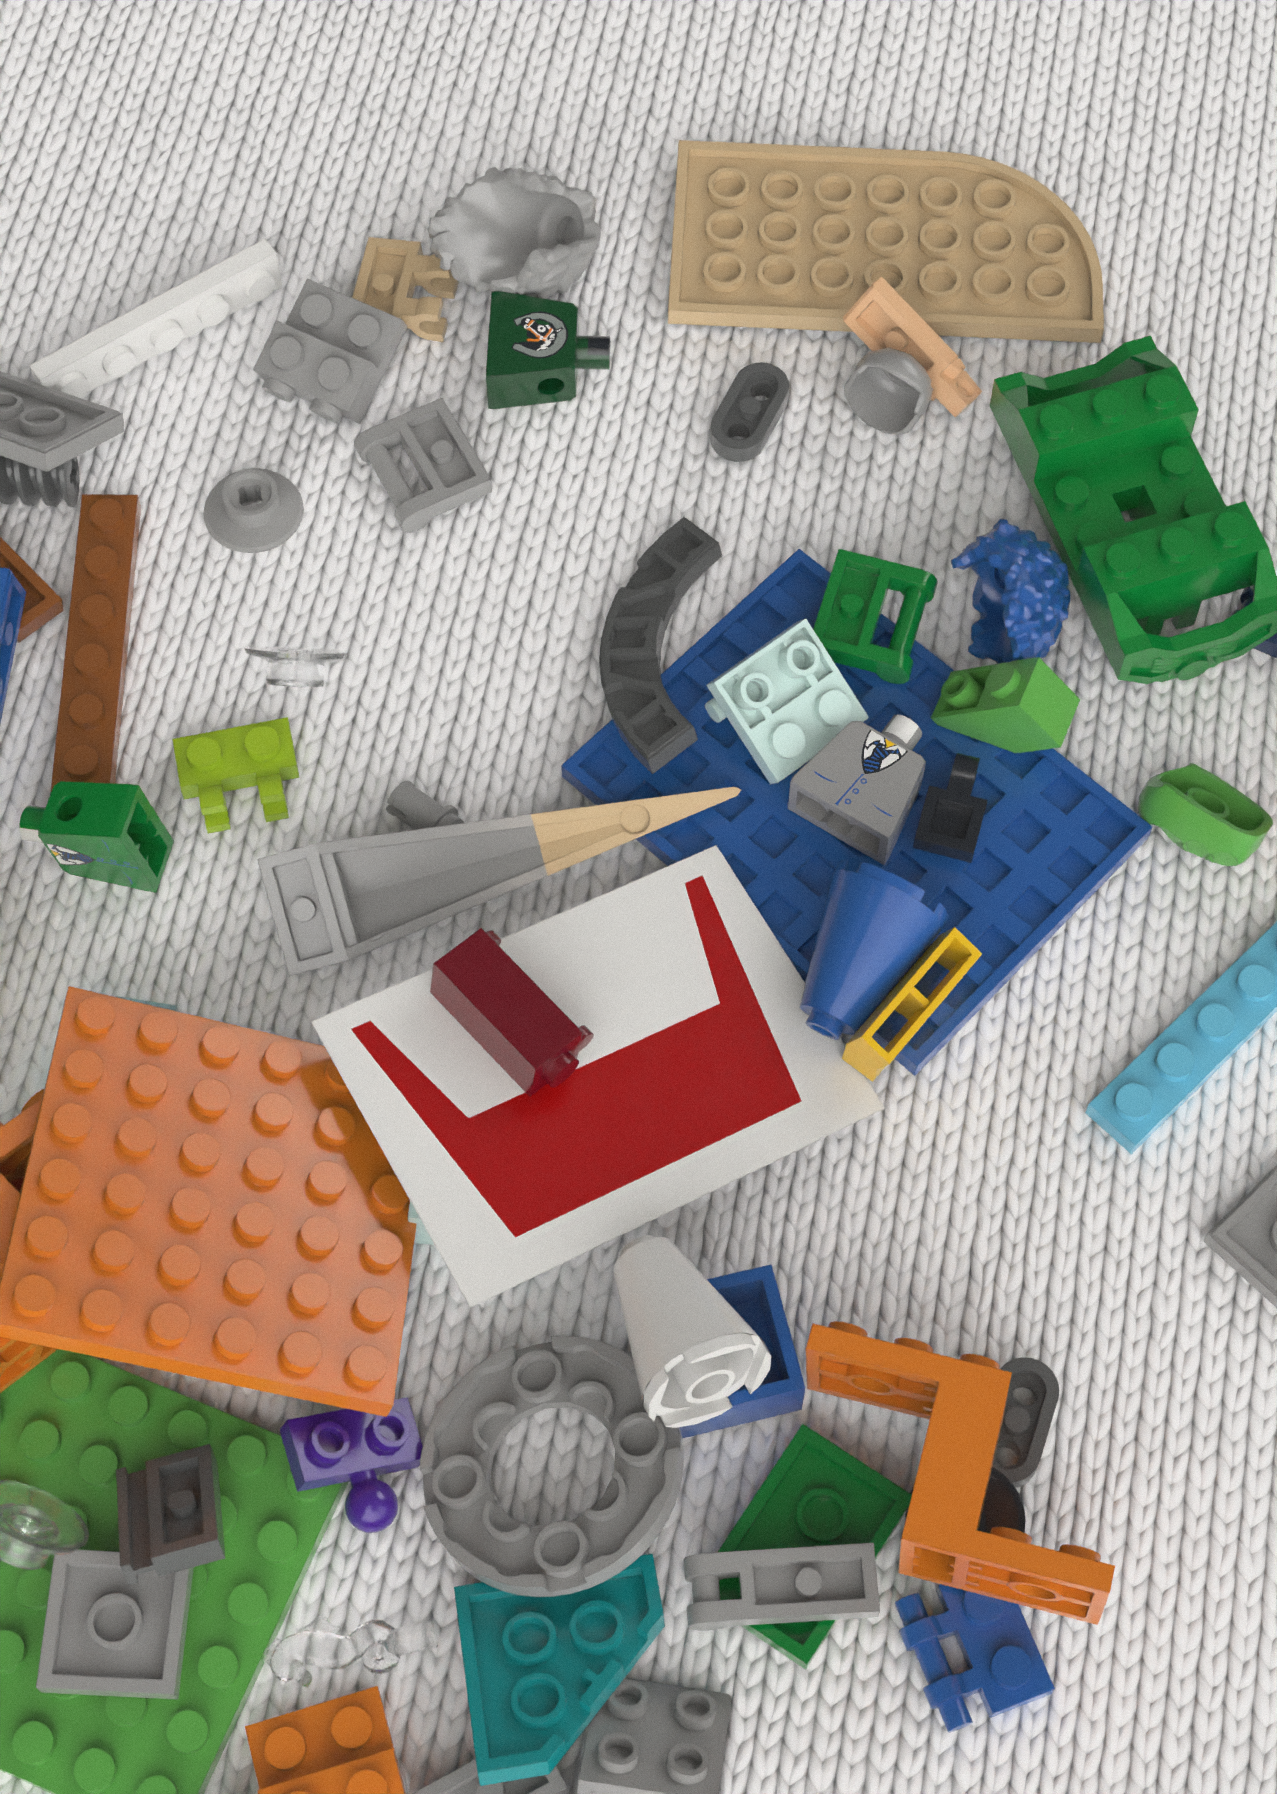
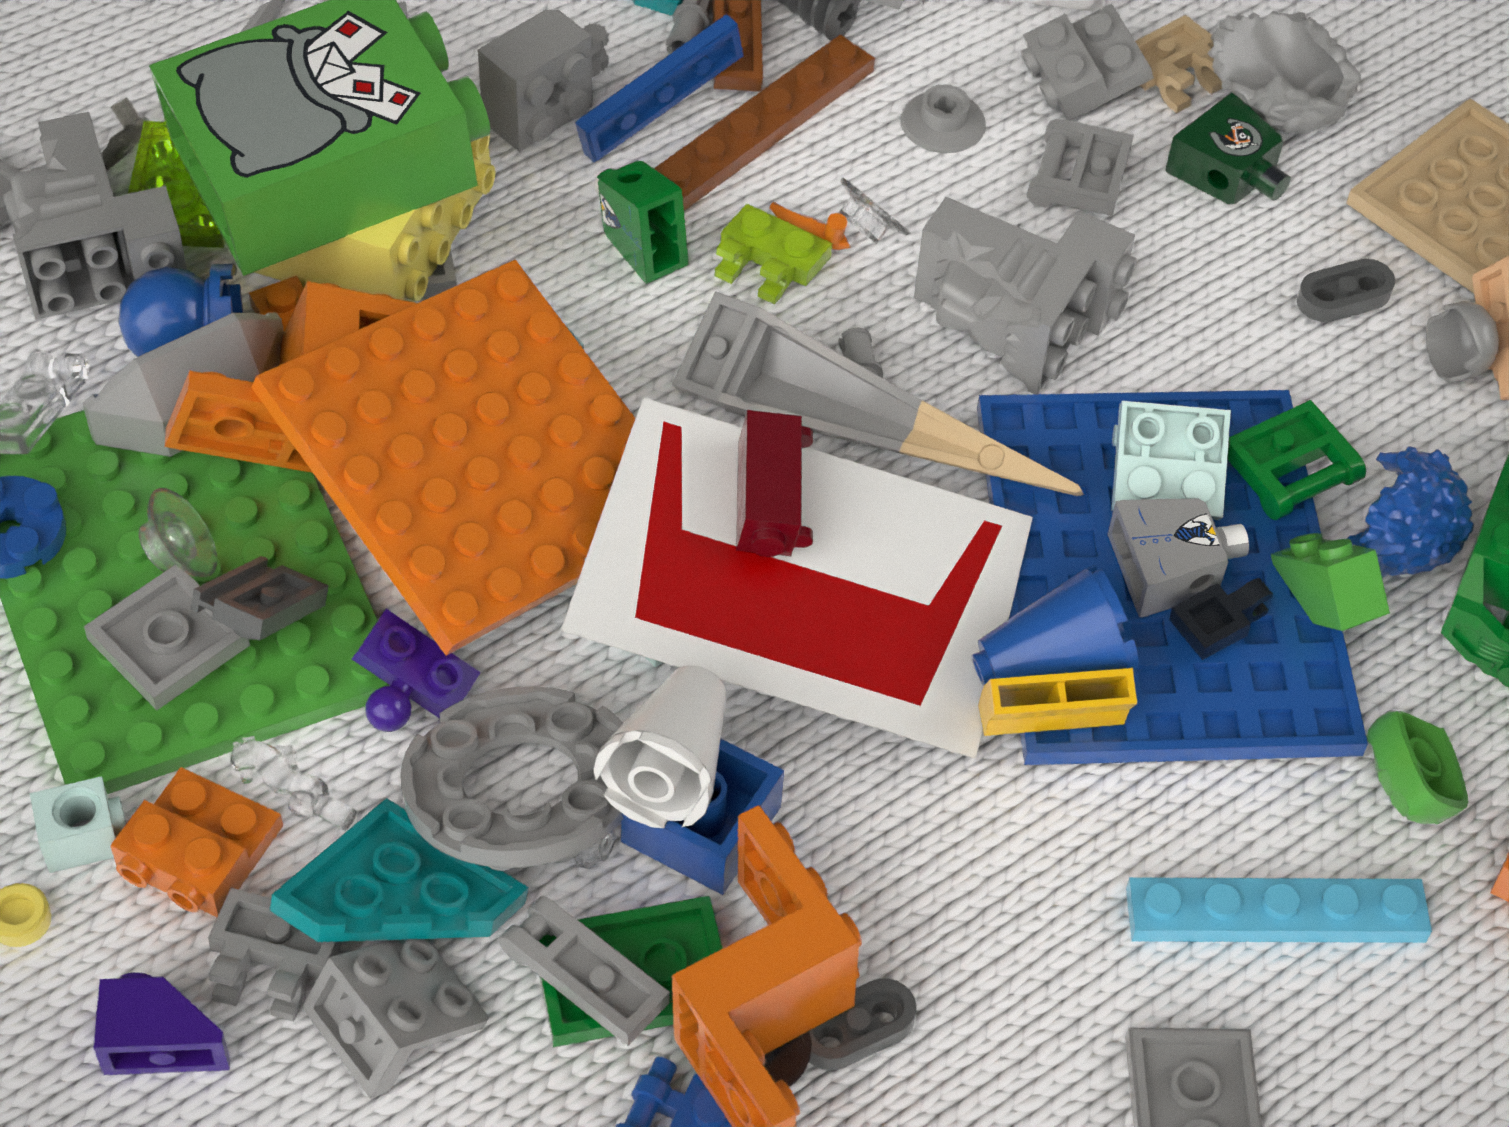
camera: 40 degrees right, 10 degrees down
(251, 712) = (831, 231): none -> orange bar
(506, 638) = (1022, 290): none -> light grey brick
(634, 642) = (1098, 367): dark grey tile -> none

